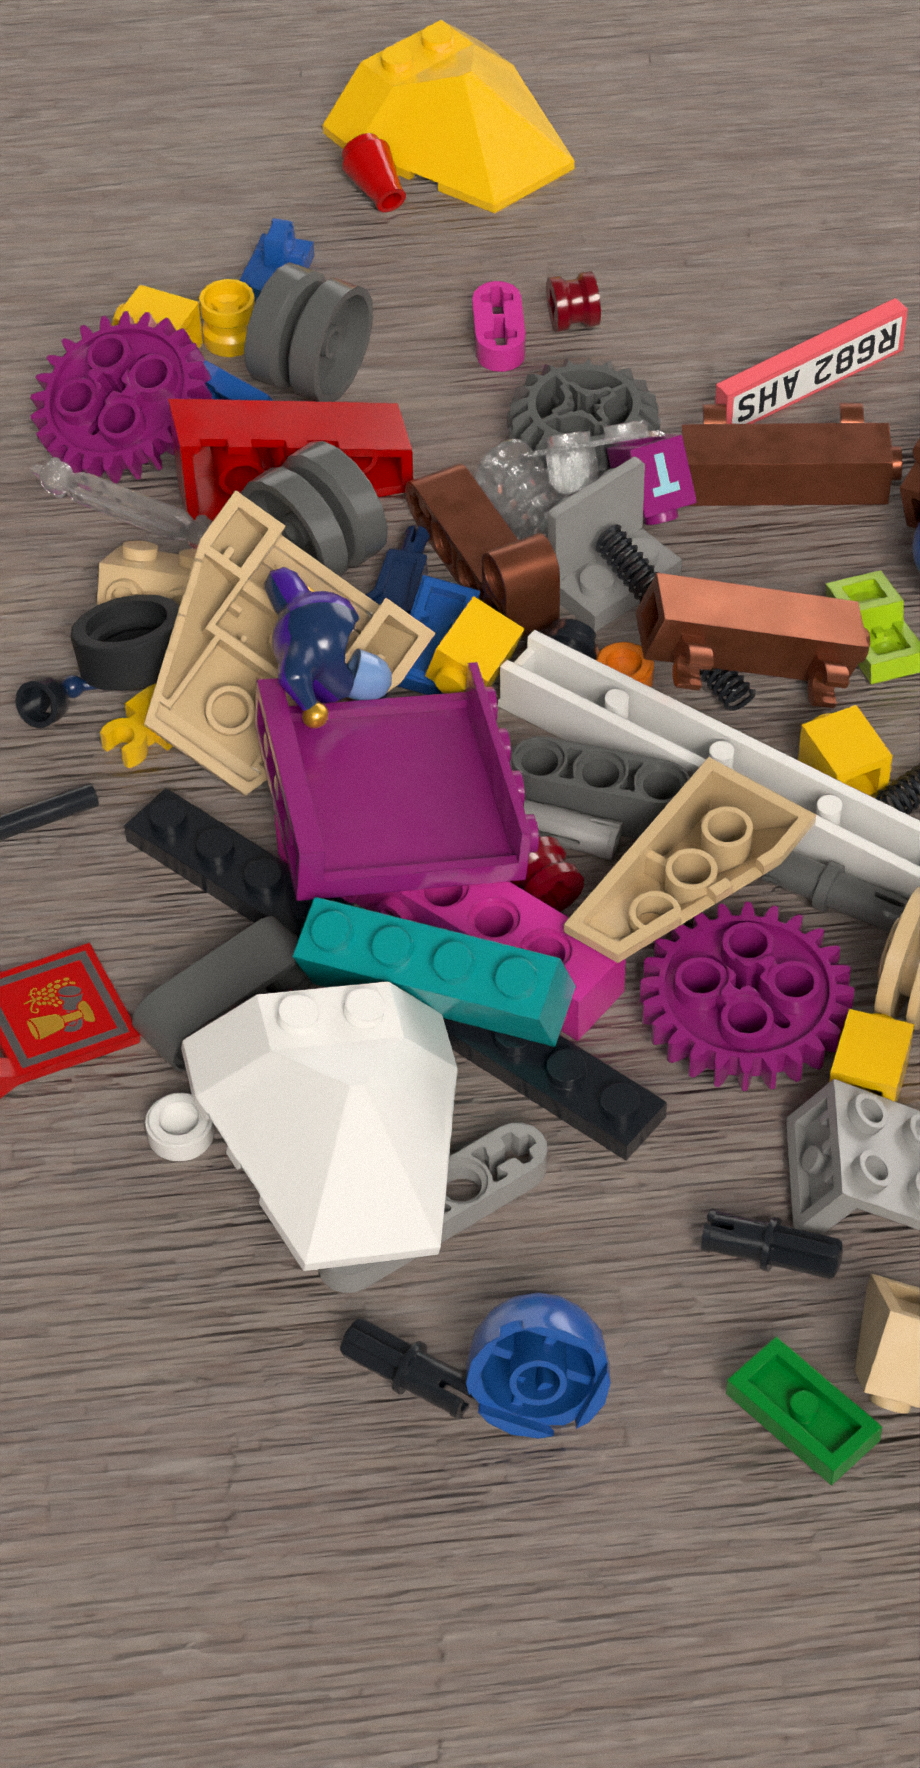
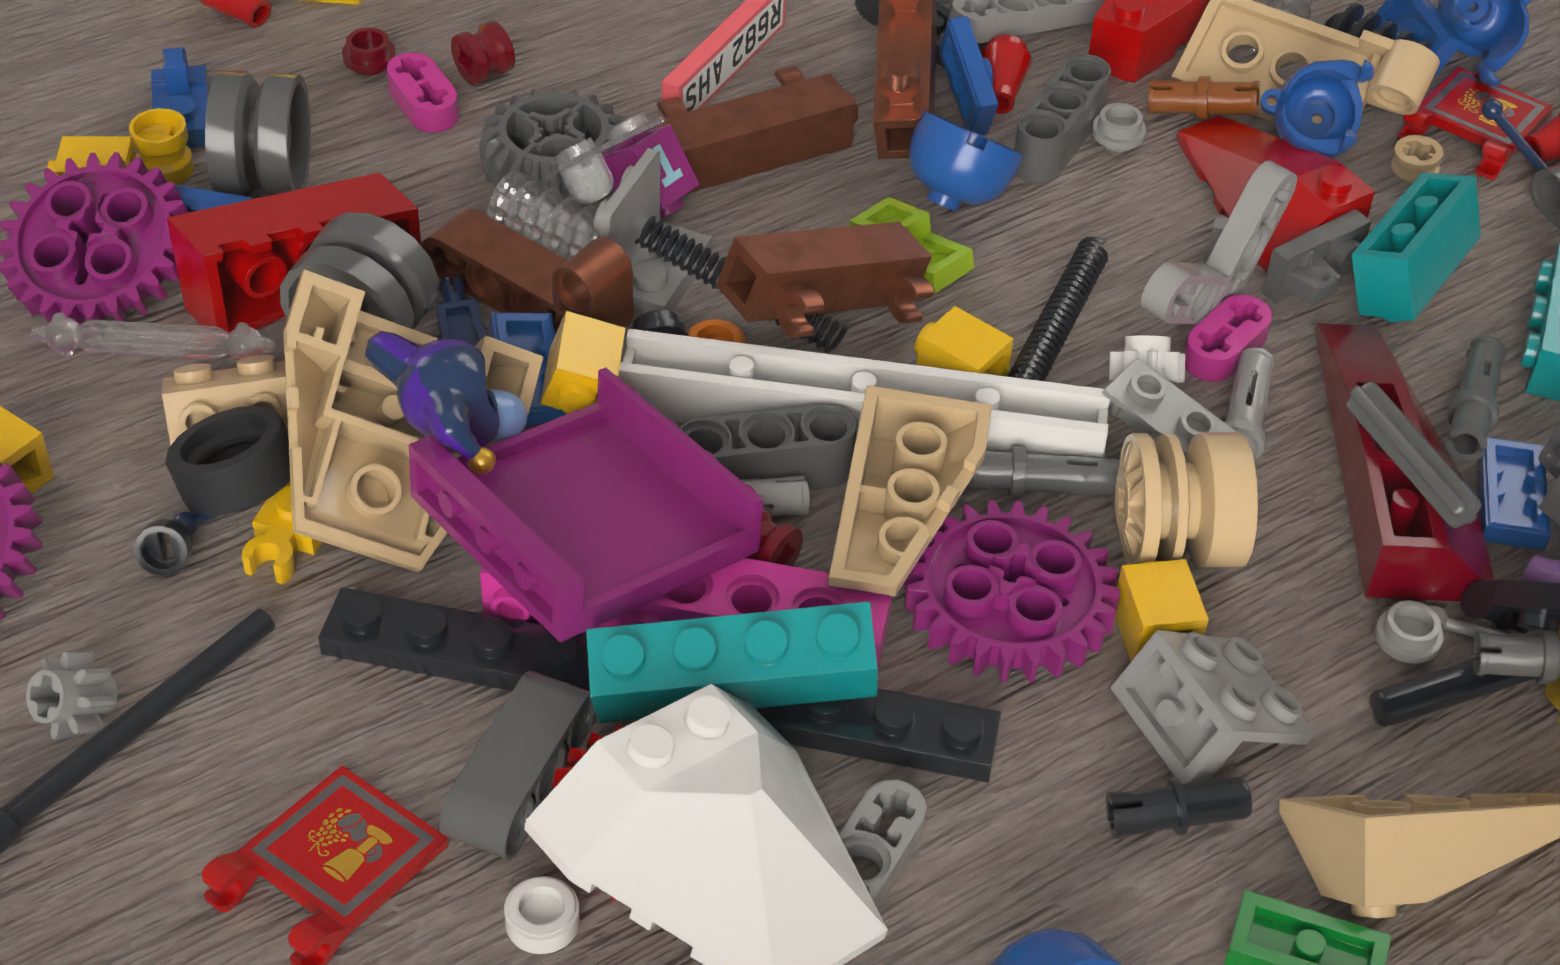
camera: 30 degrees left, 5 degrees down
(469, 268) = (368, 51): none -> dark red plate

